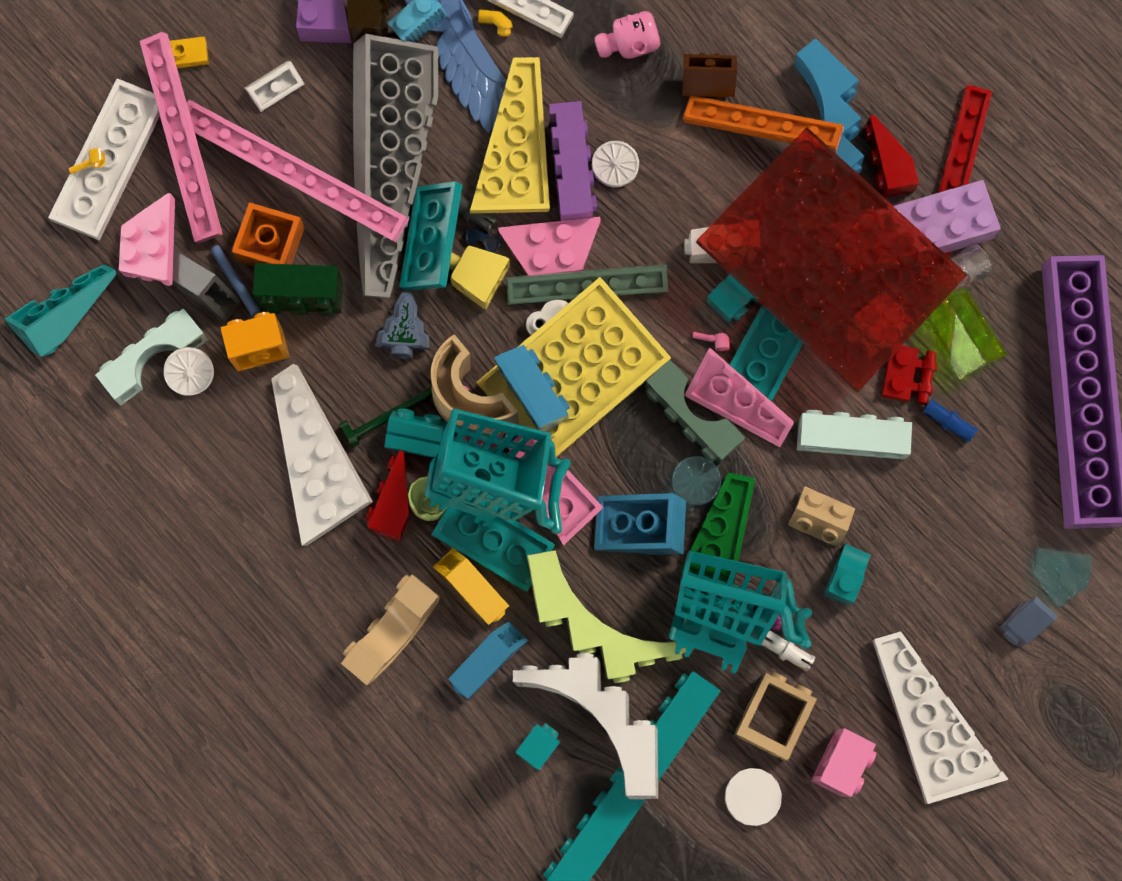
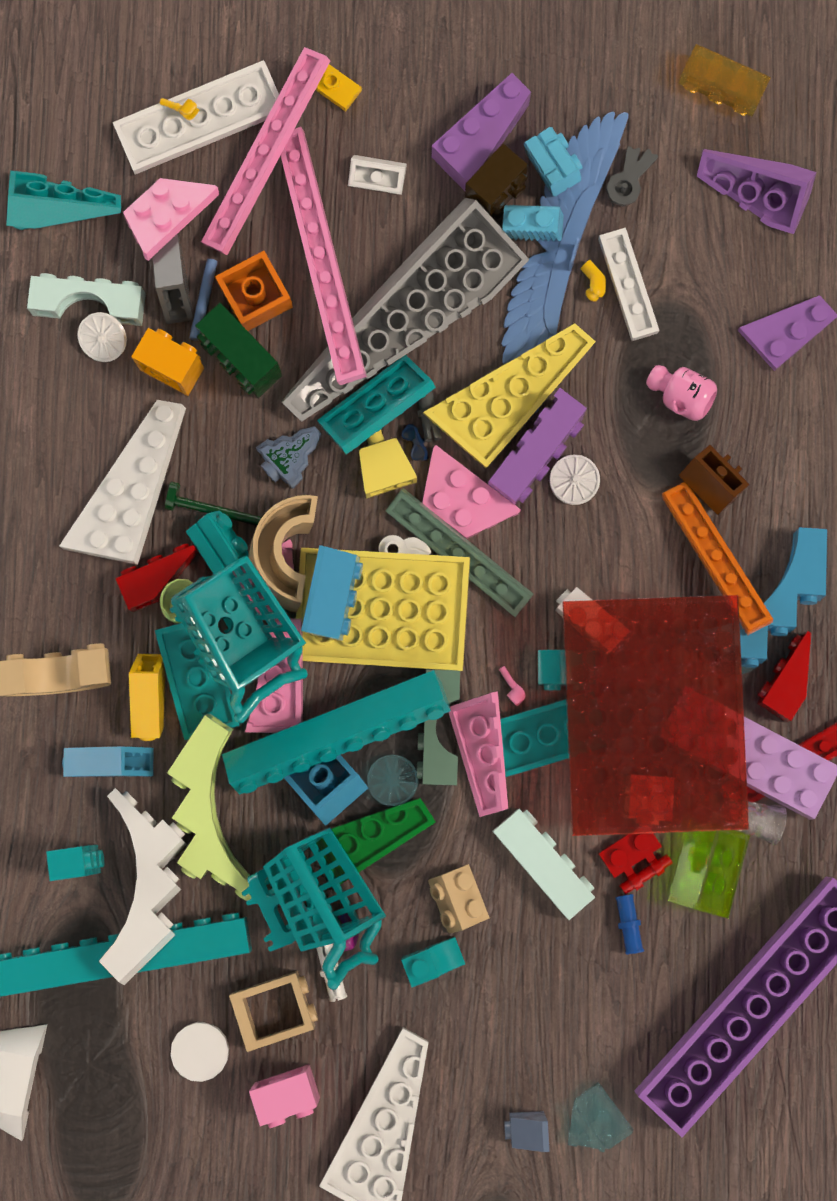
camera: 50 degrees right, 5 degrees up
(629, 481) = (336, 733): none -> teal brick

